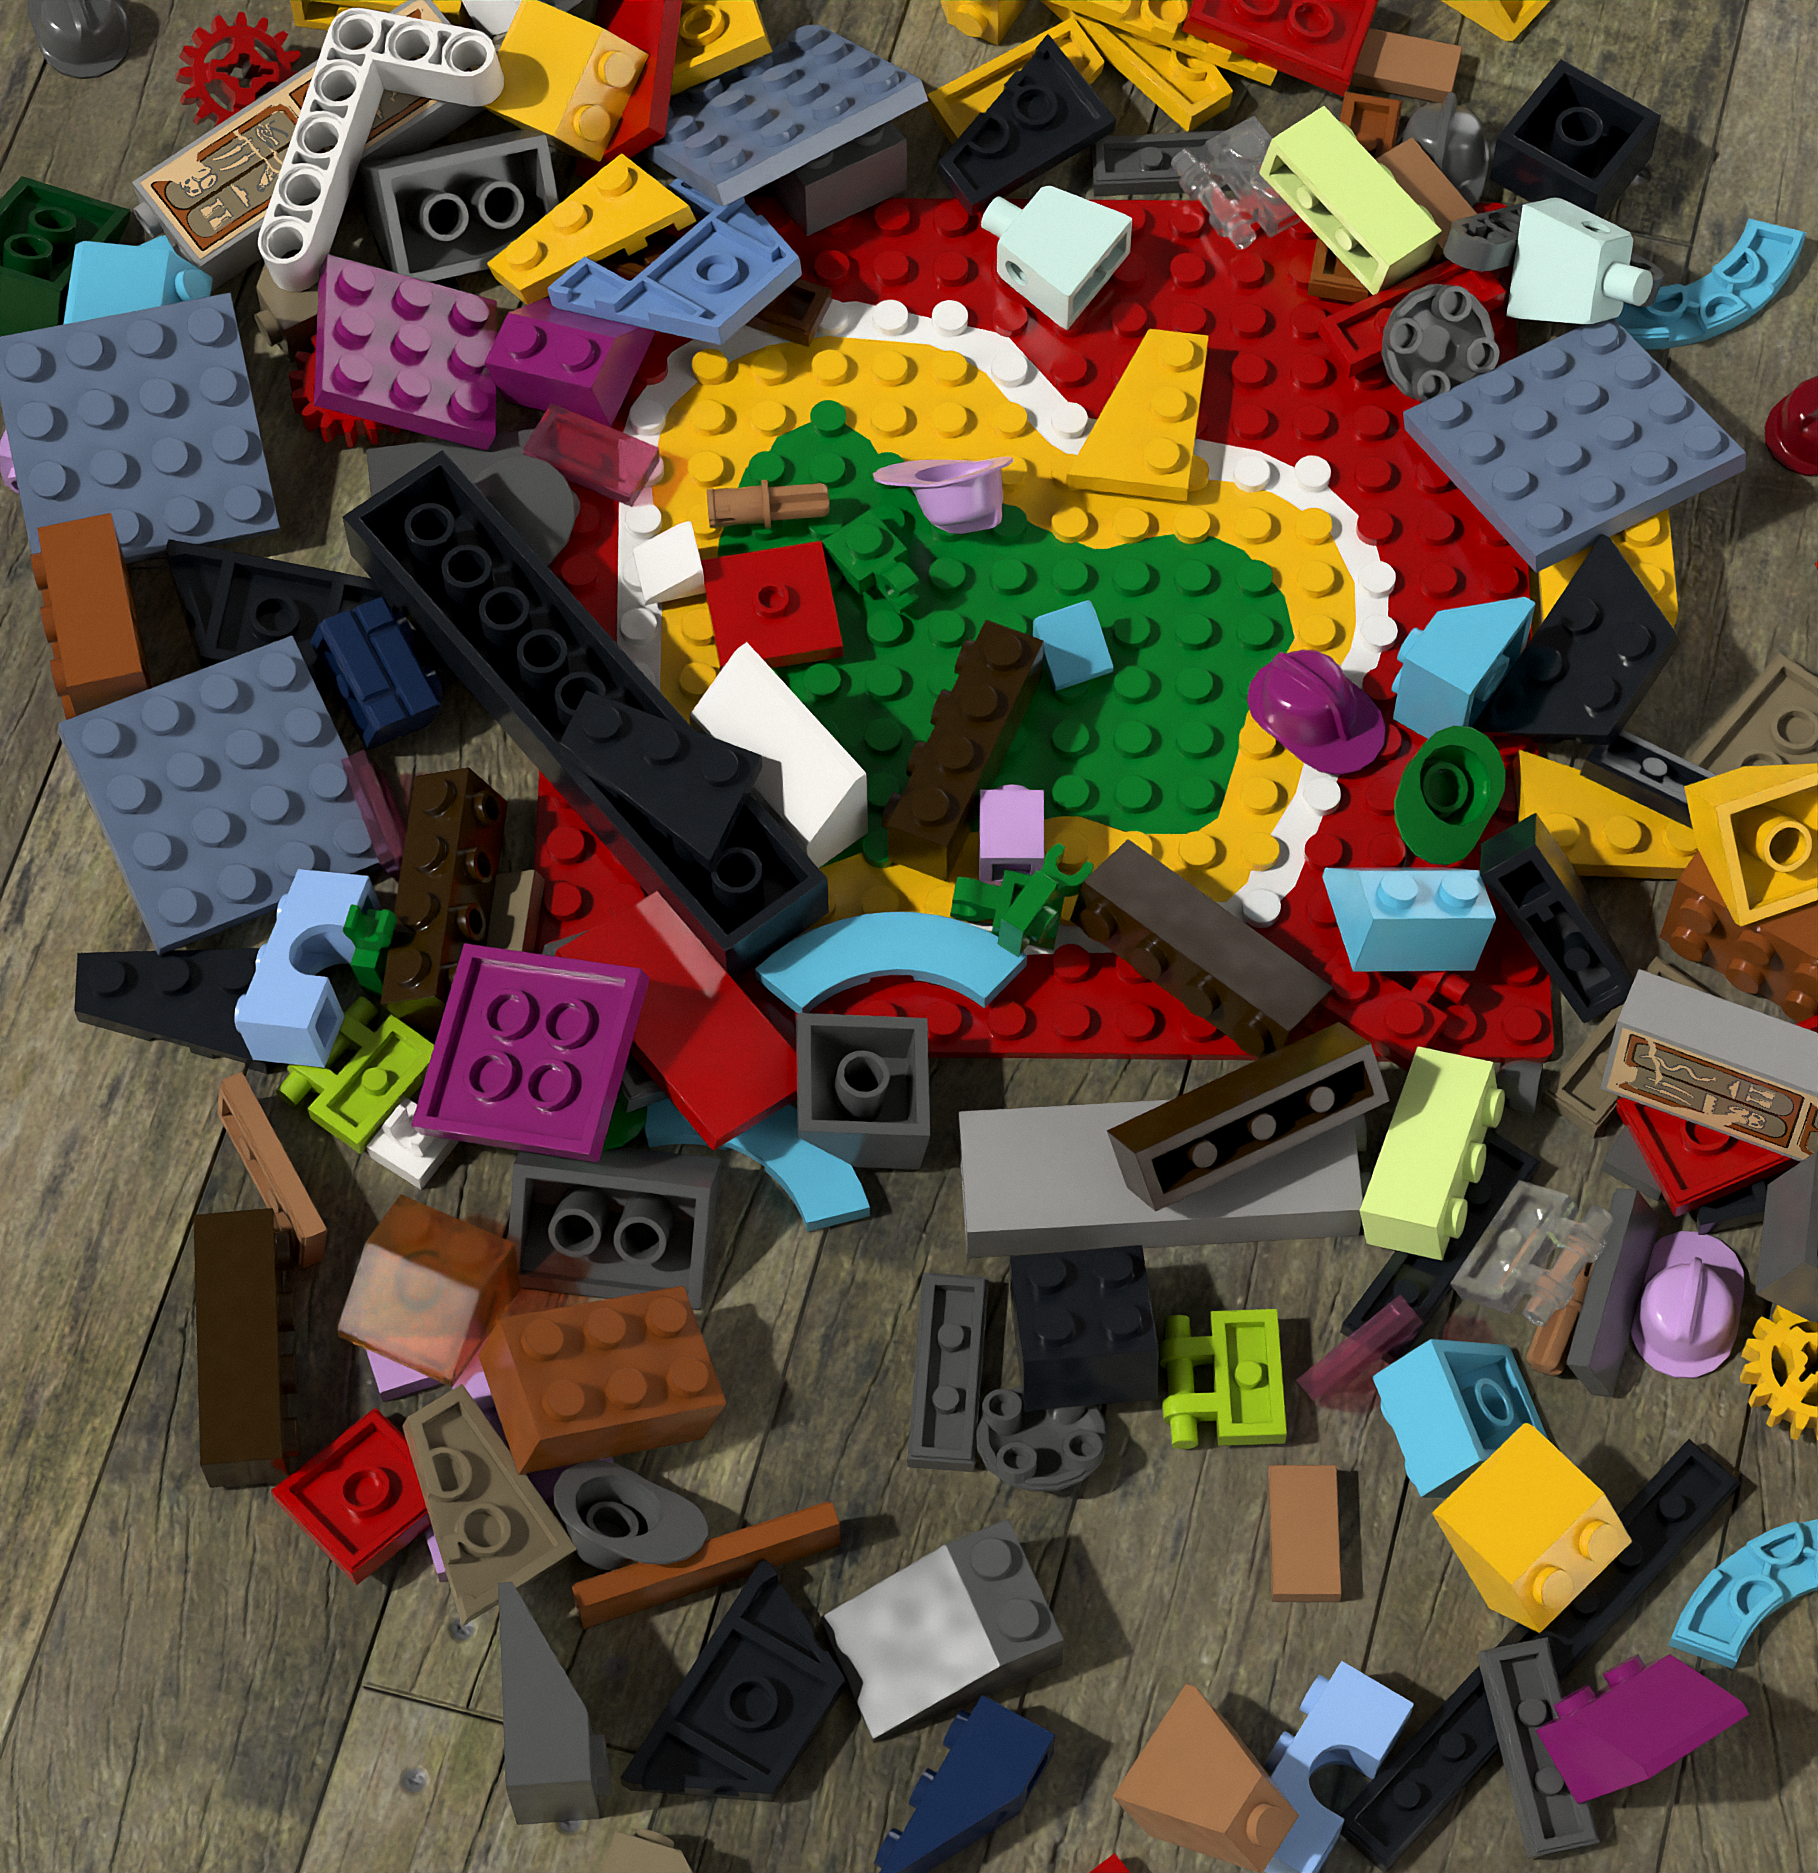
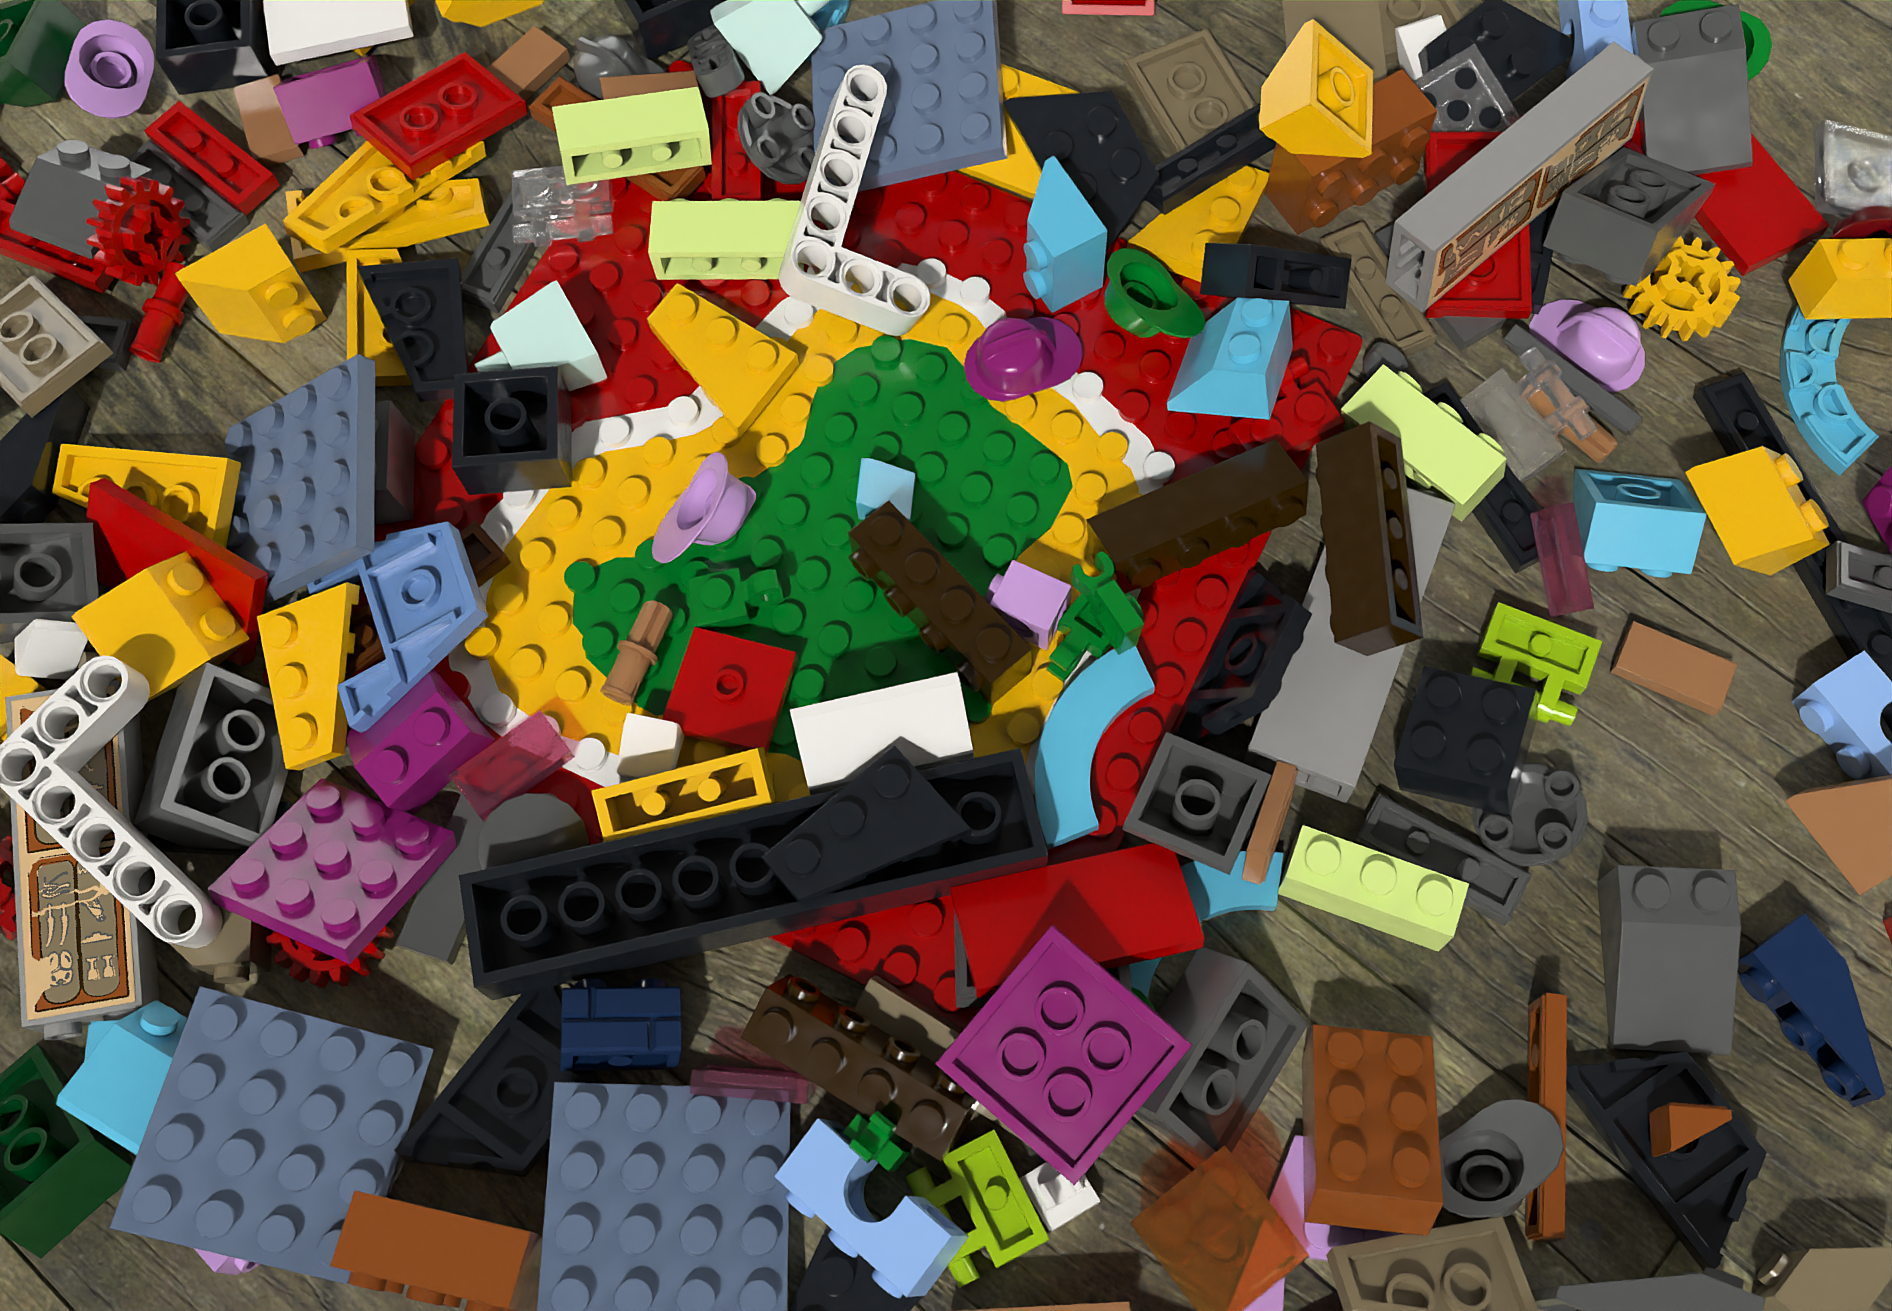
camera: 60 degrees left, 5 degrees up
(631, 612) = (685, 795): none -> yellow brick
(750, 1680) = (1681, 1123): none -> dark orange slope
(869, 1302) = (1373, 888): none -> yellowish green brick
(888, 1170) = (1270, 823): none -> medium nougat tile
(940, 267) = (512, 430): none -> black brick
(1041, 1073) = (1244, 661): none -> black wing
(1288, 357) = (720, 238): none -> yellowish green brick
(1364, 432) = (833, 207): none -> white beam

